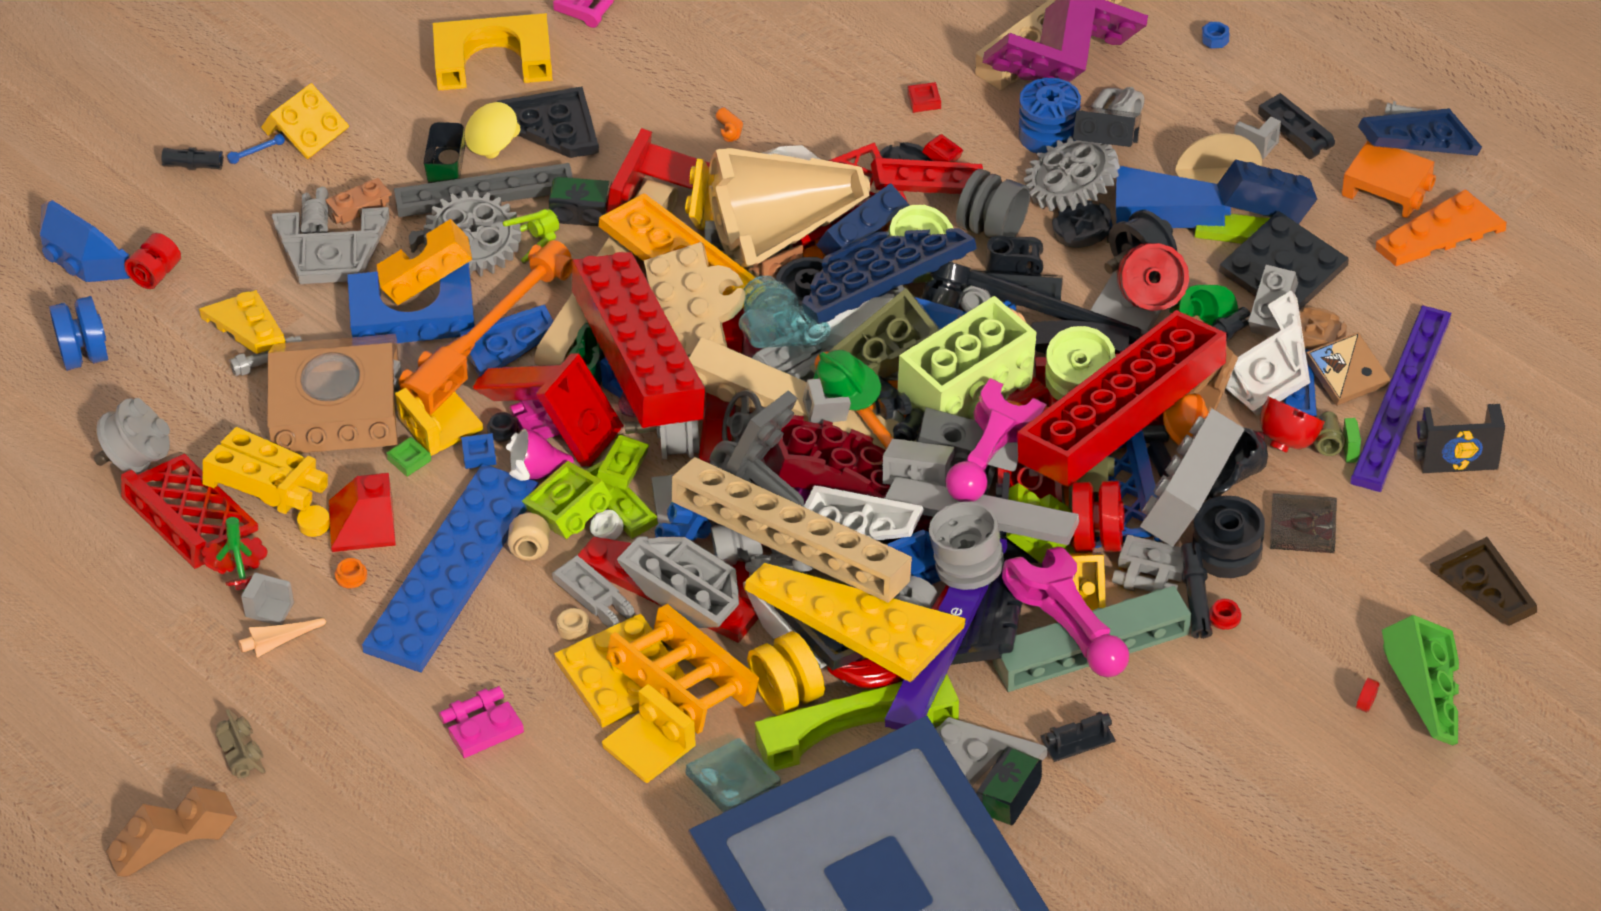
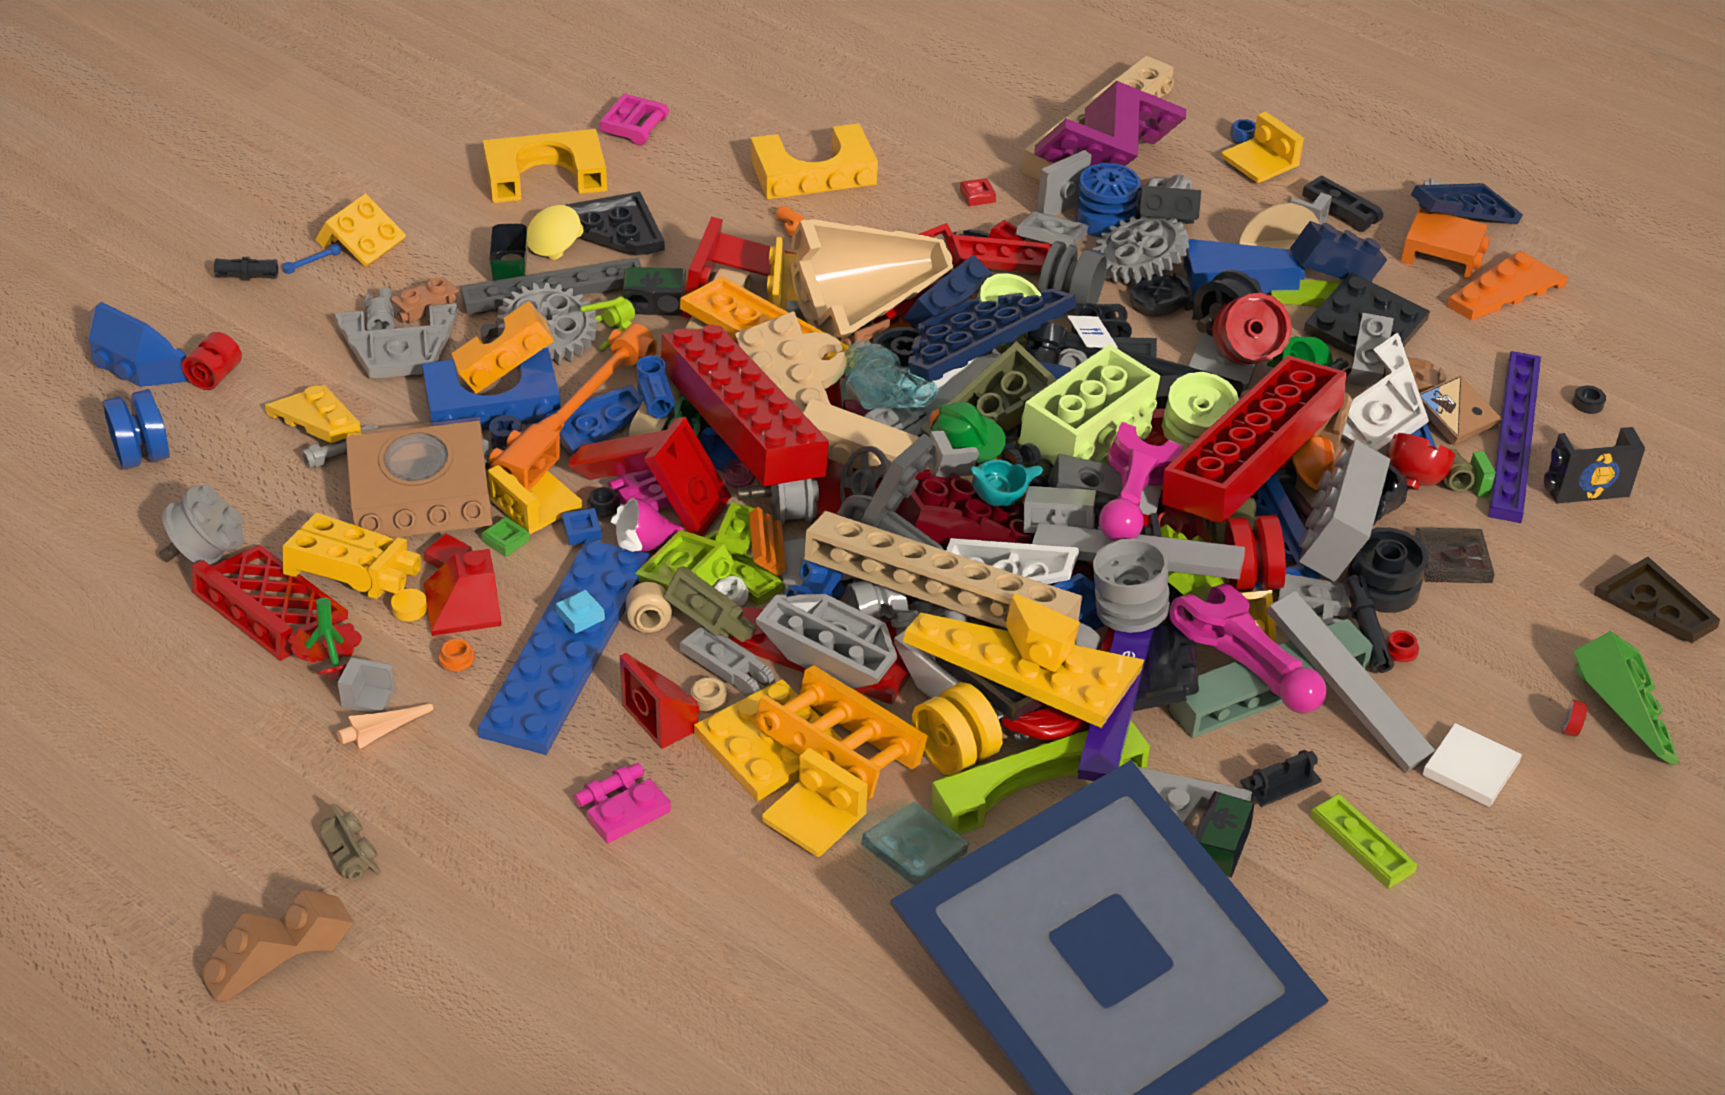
camera: 10 degrees left, 5 degrees down
(352, 466) = (444, 549): none -> red tile
(416, 345) = (501, 428): none -> dark blue wheel
(465, 538) = (580, 611): none -> medium azure plate
(523, 631) = (656, 702): none -> red slope
(561, 311) = (654, 386): none -> blue piece
(580, 540) = (708, 606): none -> olive hinge
(650, 480) = (767, 542): none -> orange tile
(734, 74) = (786, 176): none -> yellow arch
(867, 432) = (1001, 482): none -> teal hair
(868, 591) = (1041, 632): none -> yellow slope
(988, 147) = (1051, 229): none -> light grey tile
(998, 269) = (1092, 331): none -> white sticker
(1002, 97) = (1061, 183): none -> light grey plate
(1140, 799) = (1363, 841): none -> lime tile
(1160, 647) = (1350, 681): none -> light grey tile
(1231, 64) = (1269, 153): none -> yellow bracket
(1260, 734) = (1472, 765): none -> white tile
(1488, 362) = (1589, 399): none -> black tile

